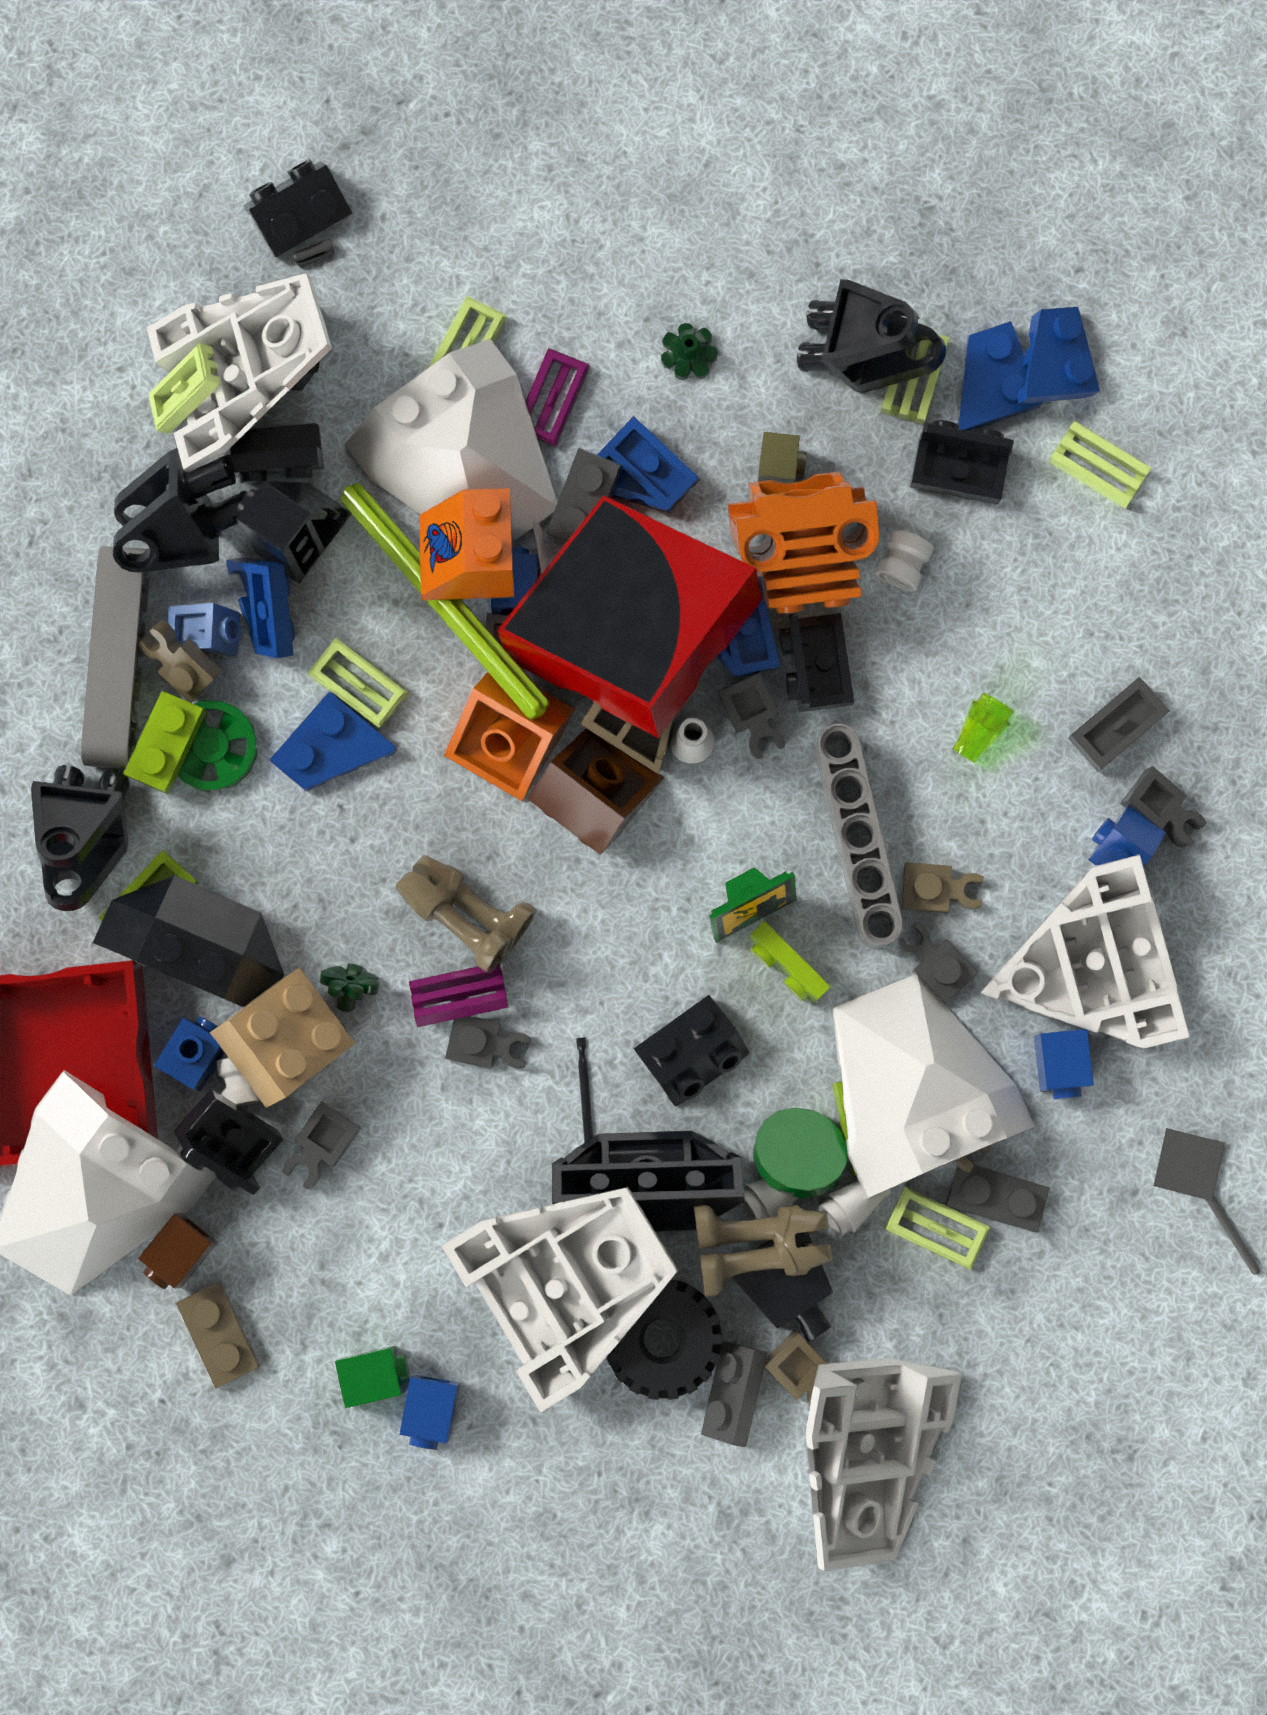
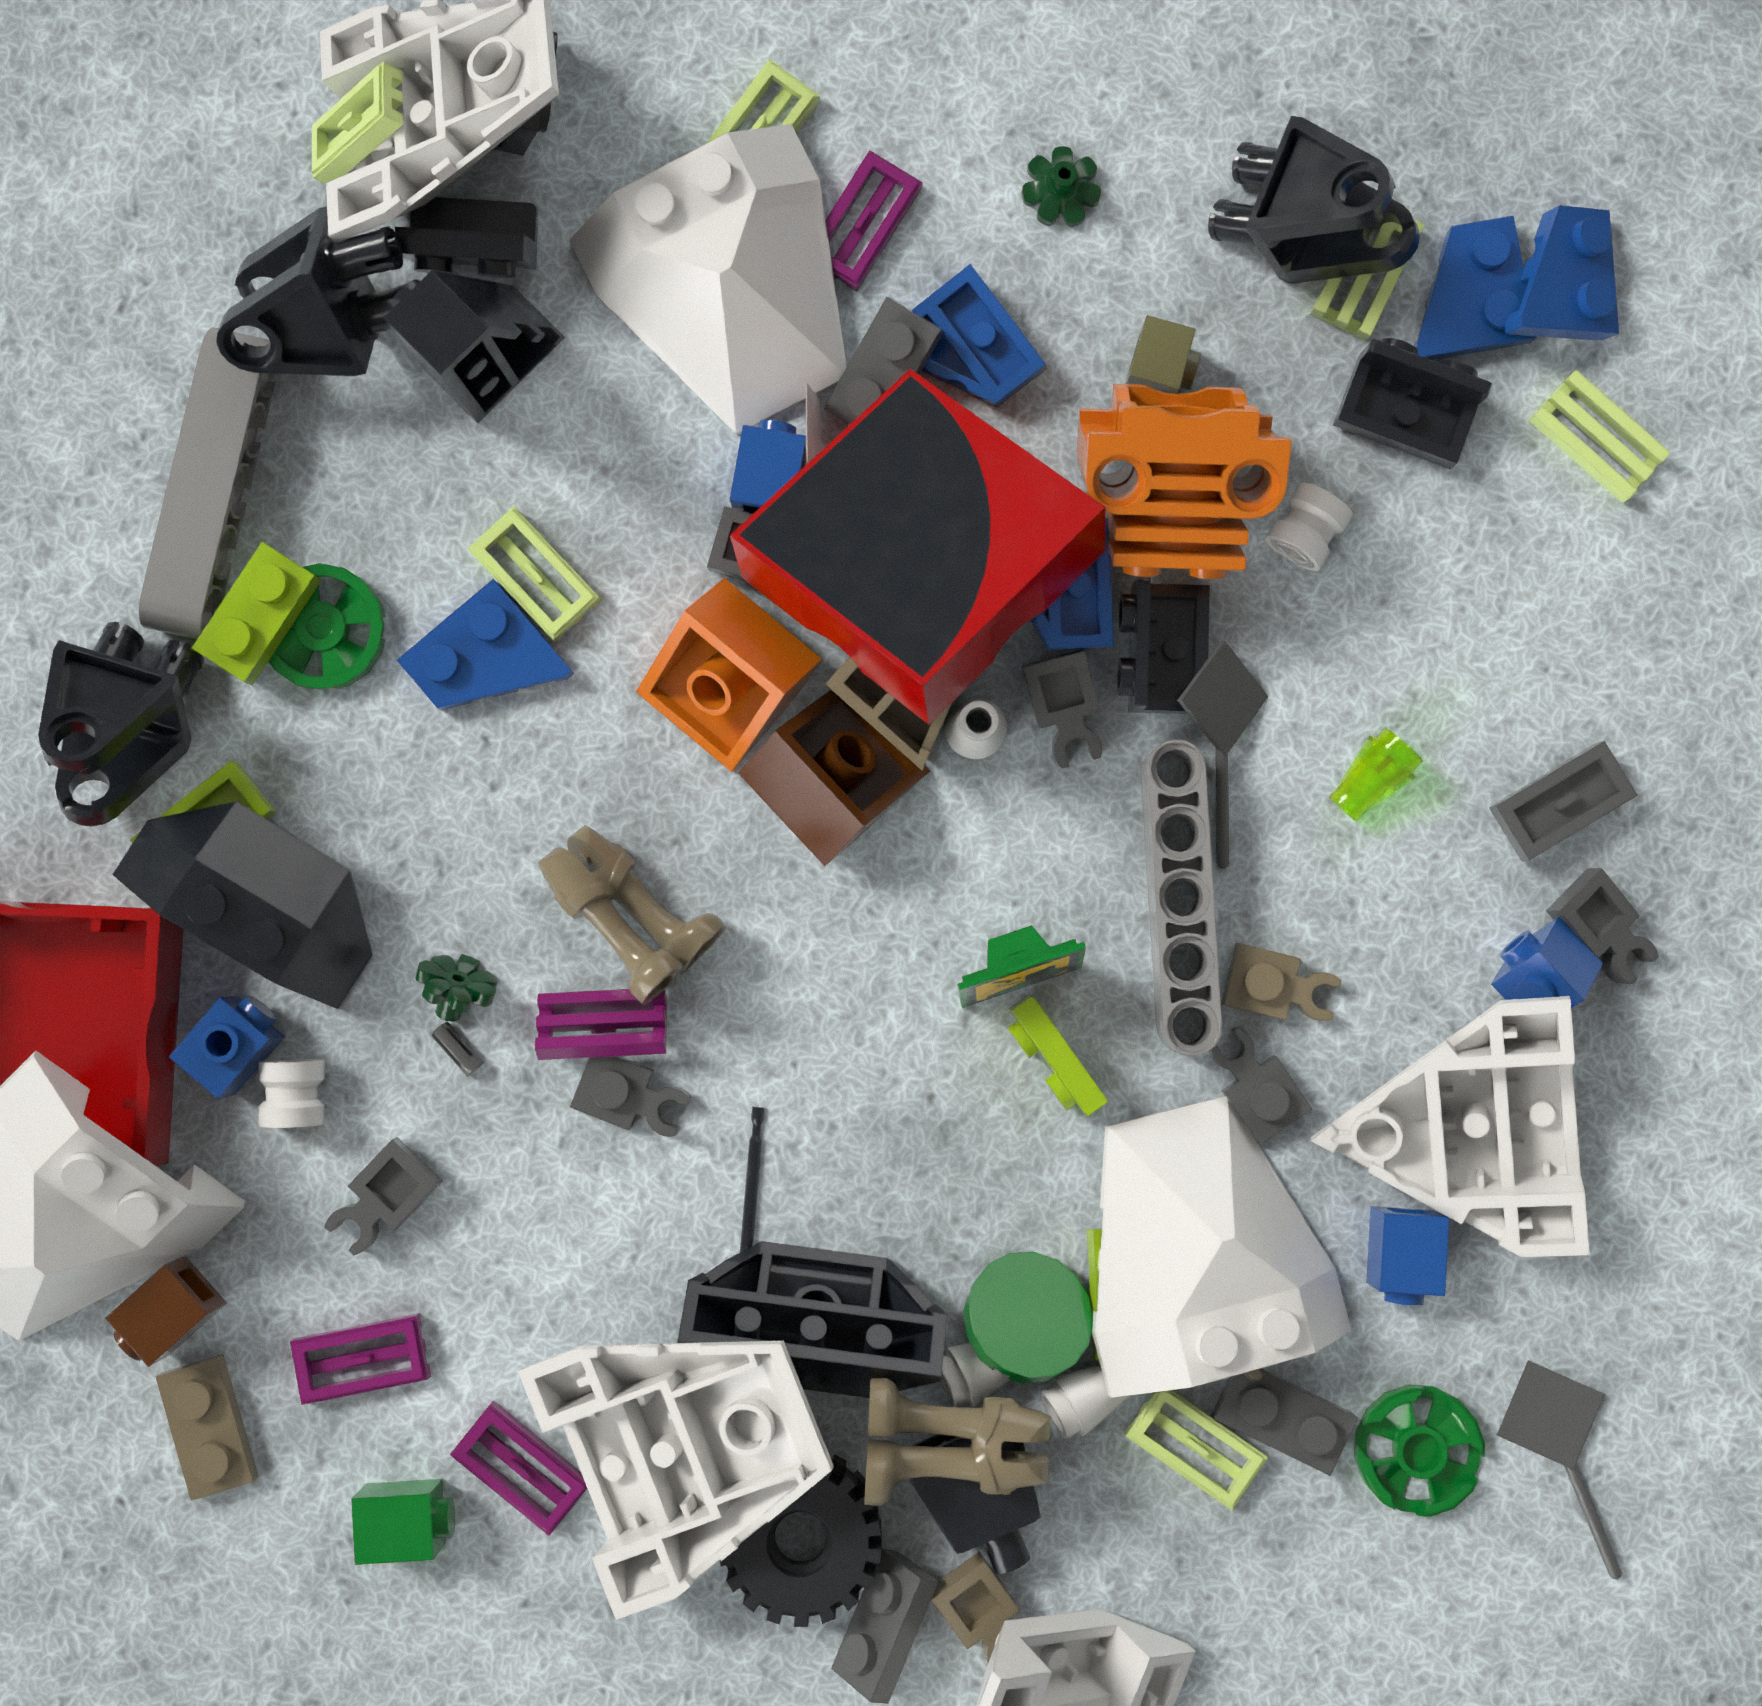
camera: 10 degrees right, 5 degrees up
(183, 665) = (298, 509): dark tan plate -> none
(207, 626) = (335, 466): medium blue bracket -> none
(226, 1141) = (251, 1177): black bracket -> none
(265, 605) = (424, 447): blue wing -> none
(282, 1038) = (349, 1049): tan brick -> none
(357, 1031) = (457, 1048): none -> dark grey piece
(360, 1252) = (414, 1348): none -> magenta tile
(417, 1306) = (536, 1448): none -> magenta tile
(429, 1411) = (471, 1579): blue brick -> none
(452, 611) = (668, 482): lime axle -> none
(467, 546) = (710, 410): orange slope -> none
(692, 1051) = (905, 1152): black bracket -> none
(865, 694) = (1222, 705): none -> dark grey piece
(1098, 1204) = (1420, 1449): none -> green piece

